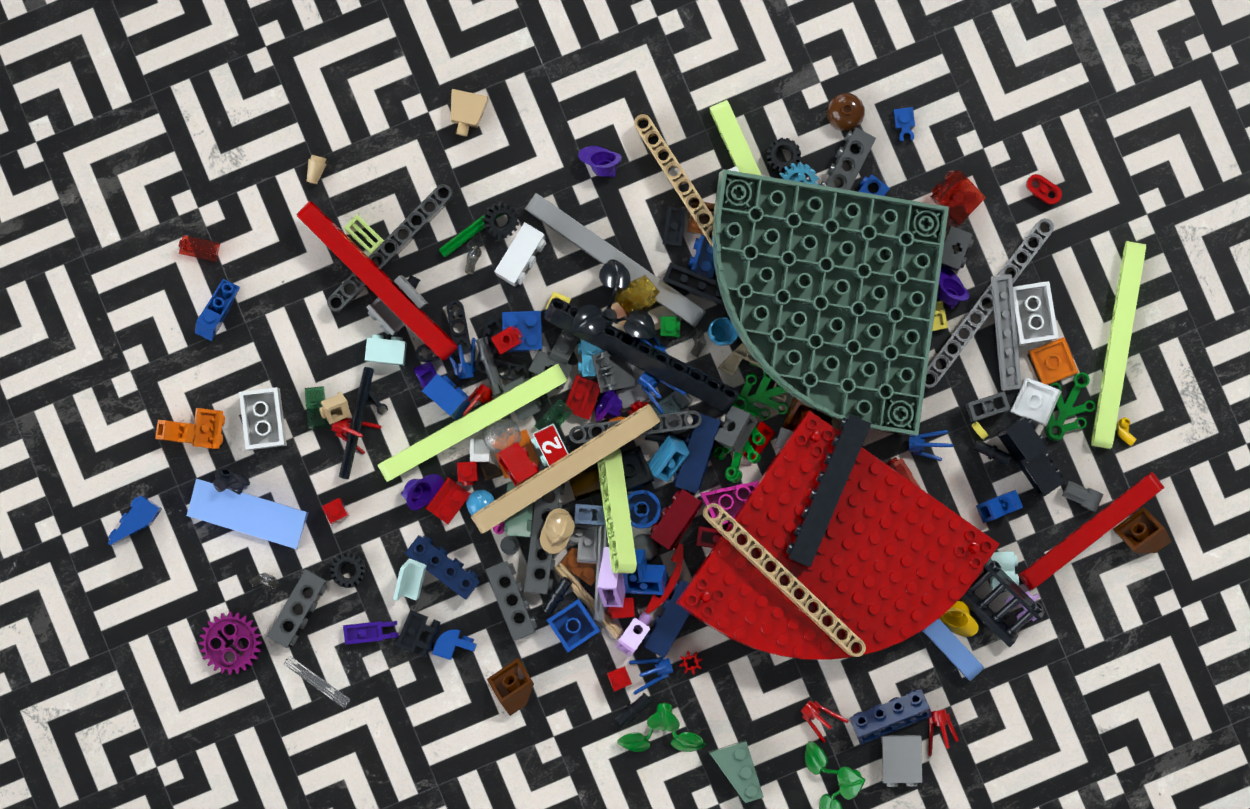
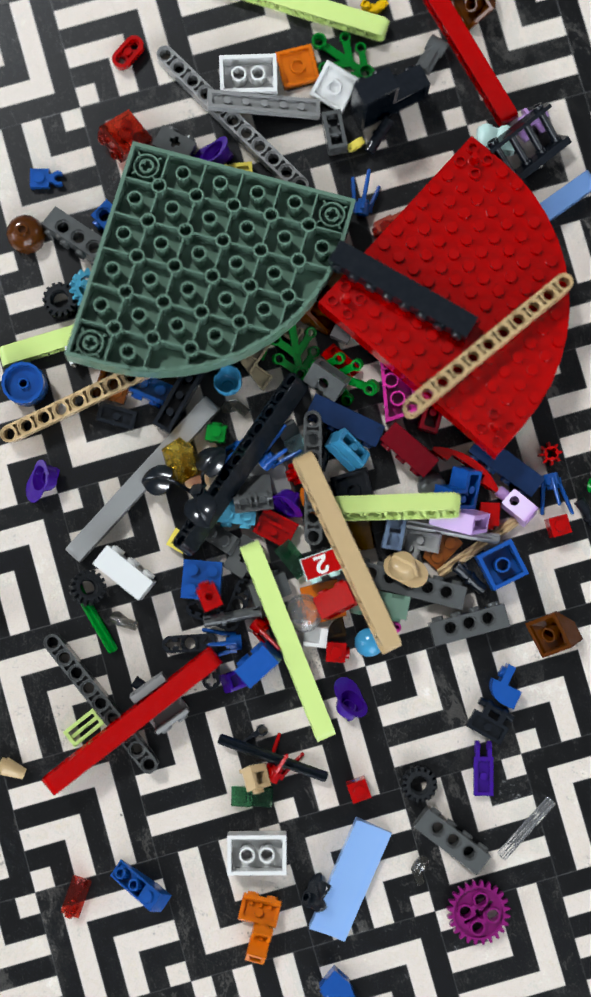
camera: 85 degrees left, 0 degrees up
(385, 350) = (204, 719): light aqua brick -> none
(410, 580) = (437, 722): light aqua panel -> none
(442, 567) = (427, 688): dark blue brick -> none
(448, 500) = (361, 674): red plate -> none
(509, 545) = (414, 618): dark grey plate -> none
(653, 509) = (394, 471): blue brick -> none
(690, 142) = (25, 373): none -> blue wheel
(959, 620) = (541, 184): yellow piece -> none
(999, 506) = (432, 134): blue brick -> none

